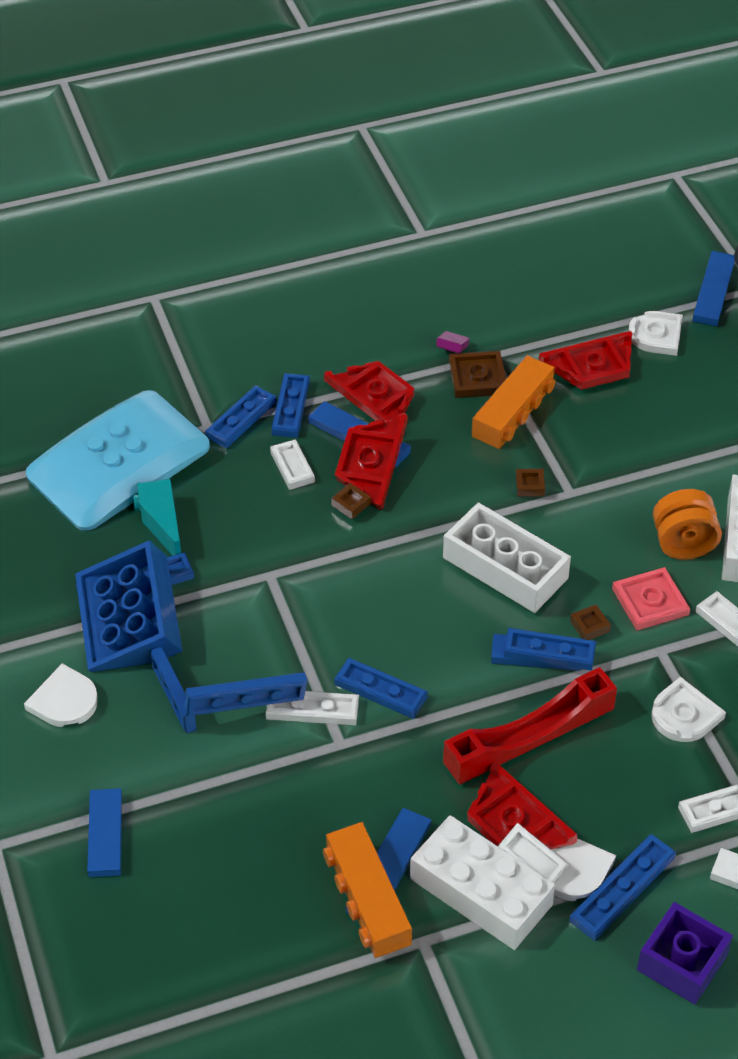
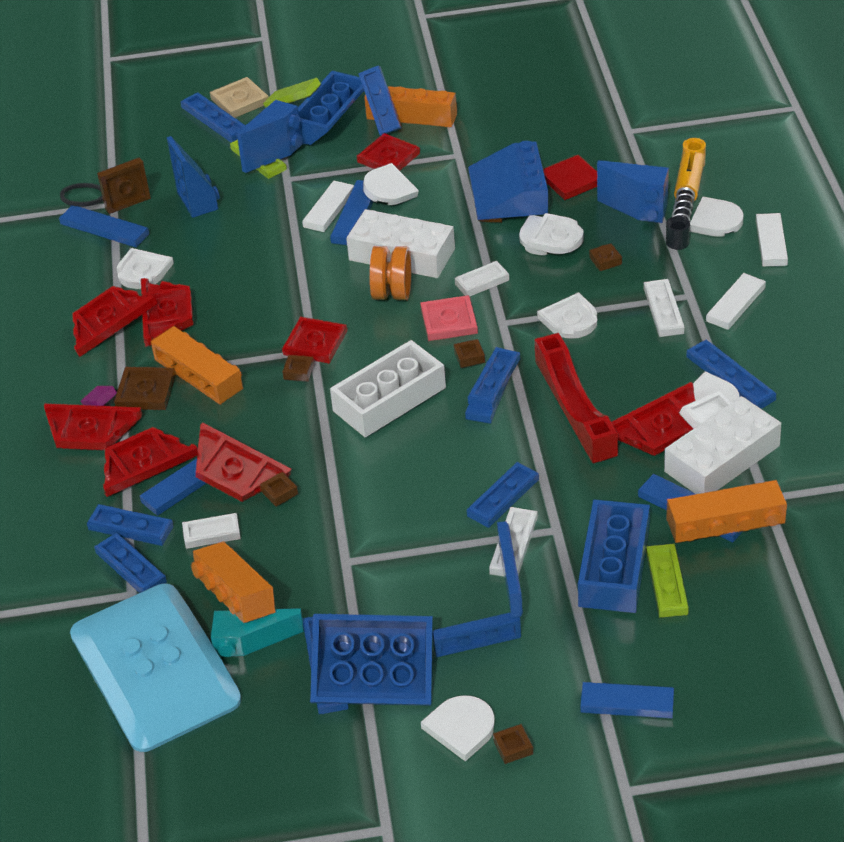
camera: 75 degrees left, 5 degrees down
(39, 740) = (512, 743): none -> reddish brown plate
(204, 483) = (233, 582): none -> orange brick
(276, 852) = (667, 580): none -> lime tile
(287, 790) = (614, 556): none -> blue brick
(411, 344) = (89, 425): none -> red wing
(566, 318) = (107, 315): none -> red wing
(583, 490) = (315, 339): none -> red tile
(684, 952) = (804, 342): dark purple brick -> none

